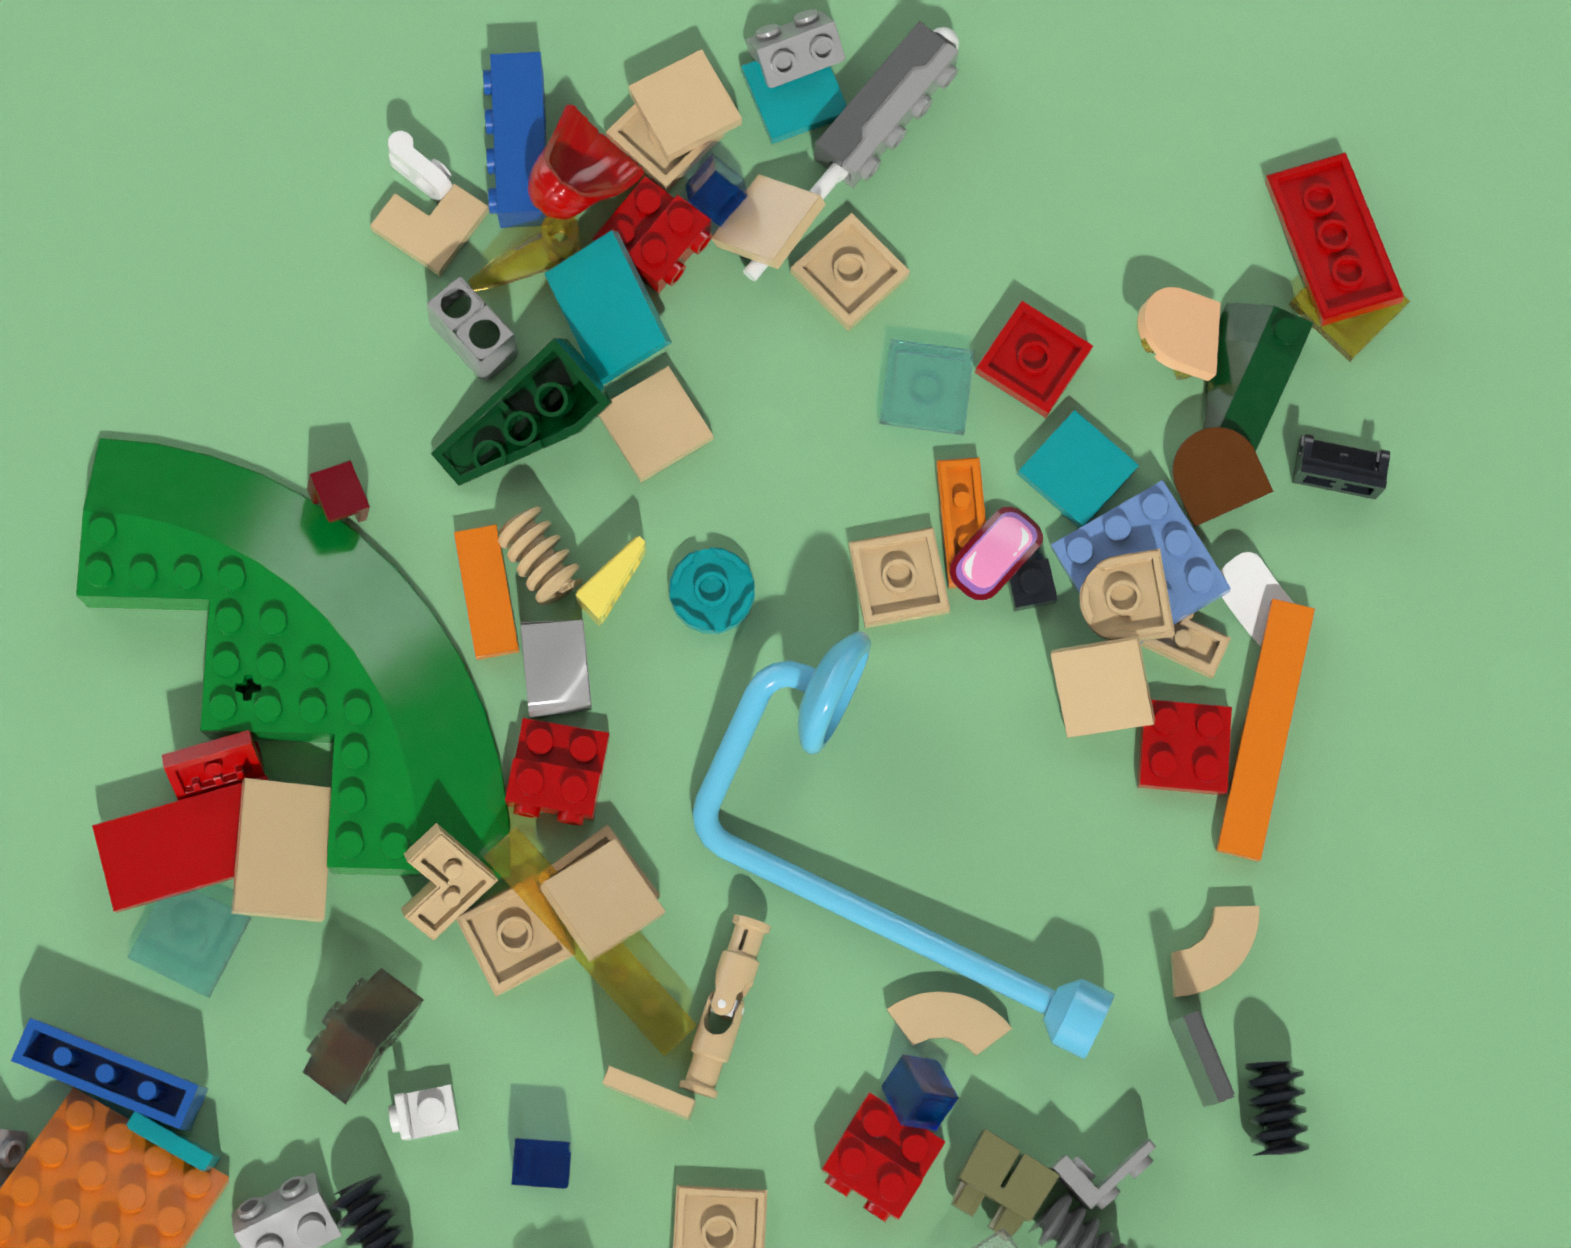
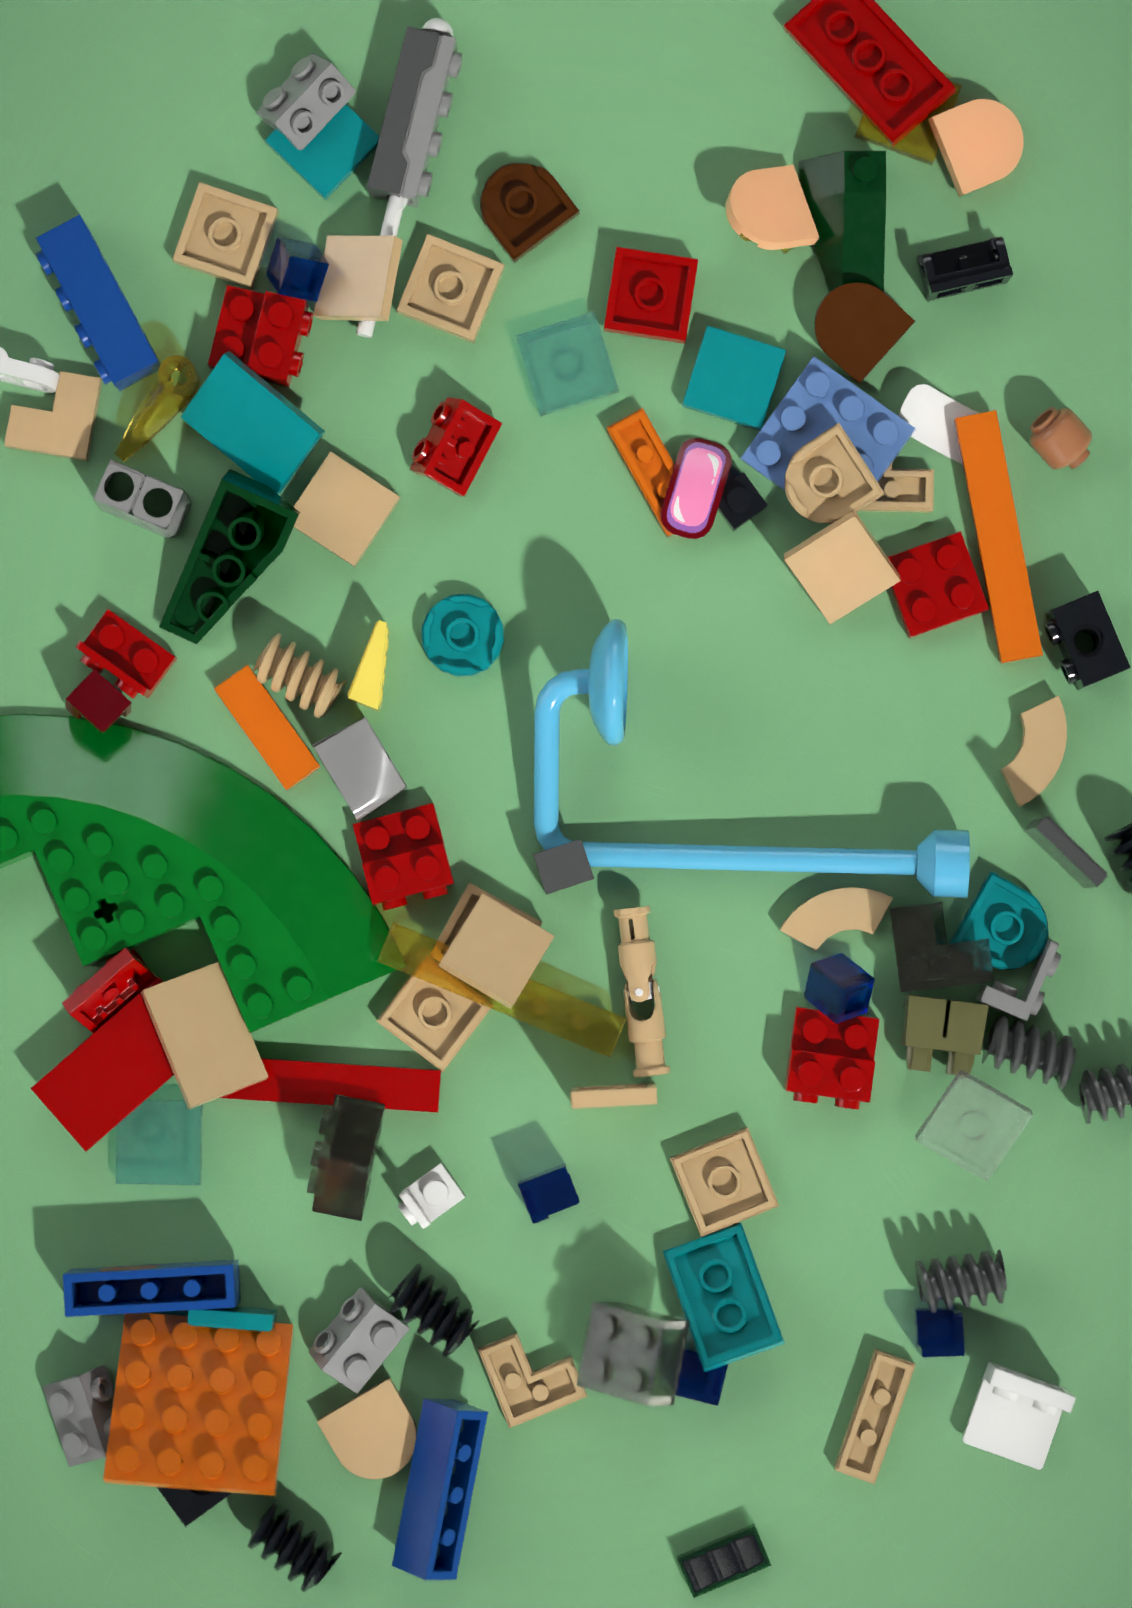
camera: 15 degrees left, 10 degrees up
(371, 949) = (320, 1081): none -> red tile
(388, 464) = (126, 654): none -> red bracket
(454, 884) = (363, 997): tan tile -> none
(578, 168) = (167, 308): red hair -> none
(685, 105) = (232, 202): tan tile -> none
(705, 850) = (563, 866): none -> dark grey panel
(787, 412) = (455, 445): none -> red bracket
(899, 577) = (620, 548): tan tile -> none
(952, 231) = (524, 207): none -> reddish brown tile
(1020, 1102) = (927, 958): none -> clear smoke brick
(1107, 1106) = (1009, 919): none -> teal tile
(1323, 844) = (1089, 616): none -> black brick
(1366, 662) = (1060, 438): none -> nougat head
(1403, 358) = (978, 143): none -> light nougat tile

